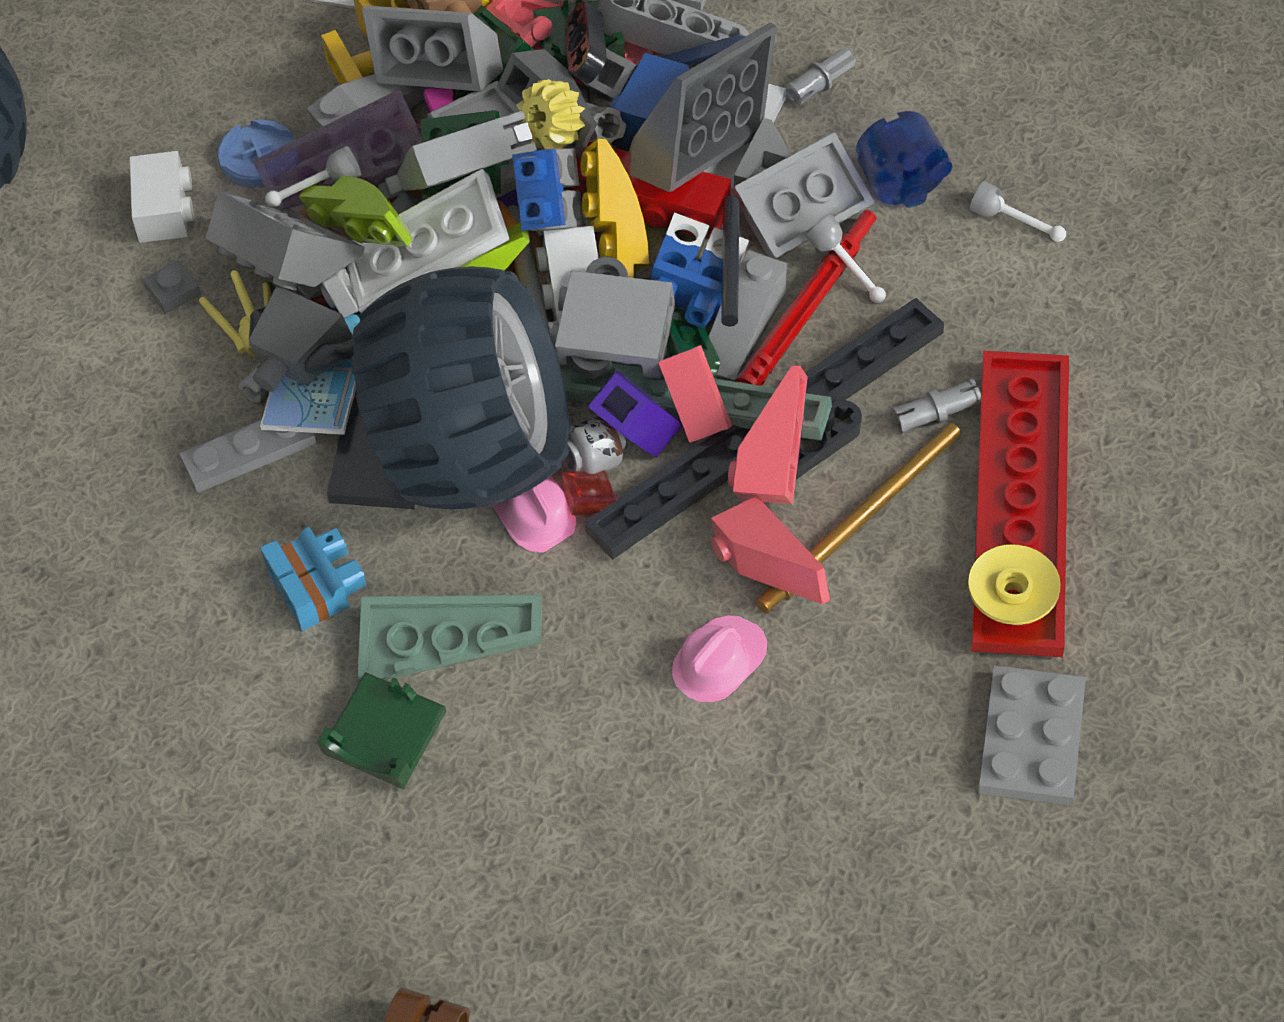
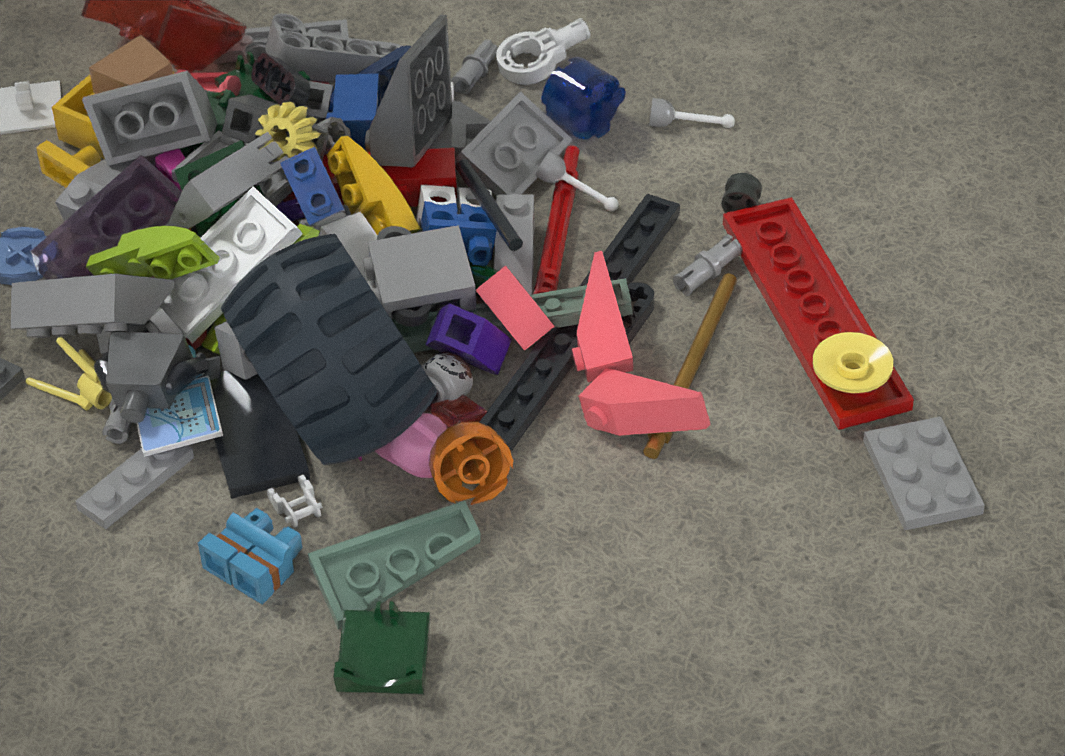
camera: 25 degrees left, 10 degrees down
(338, 164) = (113, 229): hinge -> none
(370, 532) = (282, 506): none -> white piece
(565, 547) = (470, 455): none -> orange cylinder
(718, 658) = (636, 504): bright pink piece -> none
(908, 75) = (545, 44): none -> white pin
(1017, 332) = (741, 192): none -> pearl dark grey wheel

